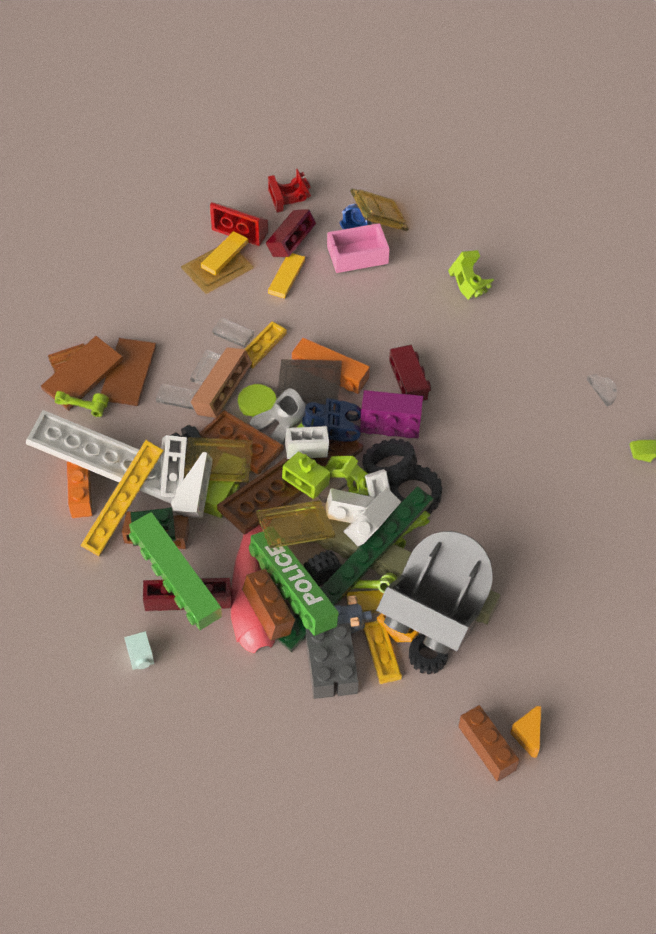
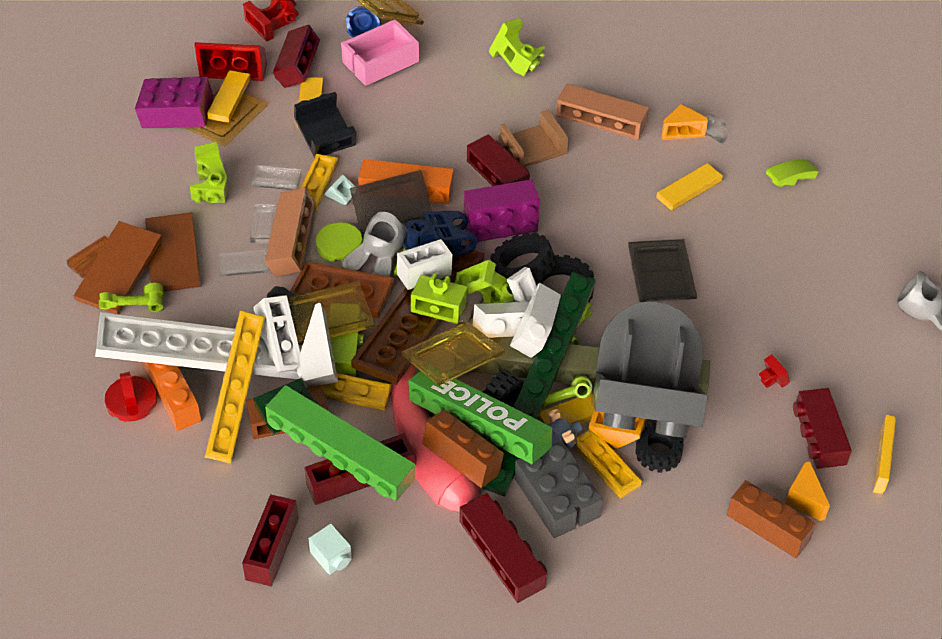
camera: 20 degrees left, 5 degrees down
(48, 481) = (130, 398): none -> red tile
(97, 629) = (270, 540): none -> dark red brick
(180, 247) = (174, 102): none -> magenta brick
(184, 312) = (215, 187): none -> lime tile
(217, 530) = (359, 391): none -> yellow tile
(268, 694) = (503, 547): none -> dark red brick
(274, 357) = (340, 190): none -> light aqua slope
(286, 298) = (323, 125): none -> black panel
(449, 361) = (535, 143): none -> medium nougat panel
(502, 503) = (662, 270): none -> clear smoke piece
(517, 350) = (602, 111): none -> nougat brick
(550, 621) = (774, 373): none -> red tile
(560, 437) = (689, 186): none -> yellow tile
(567, 680) = (822, 428): none -> dark red brick
(579, 380) = (684, 124): none -> light orange slope
(609, 720) = (884, 454): none -> yellow tile

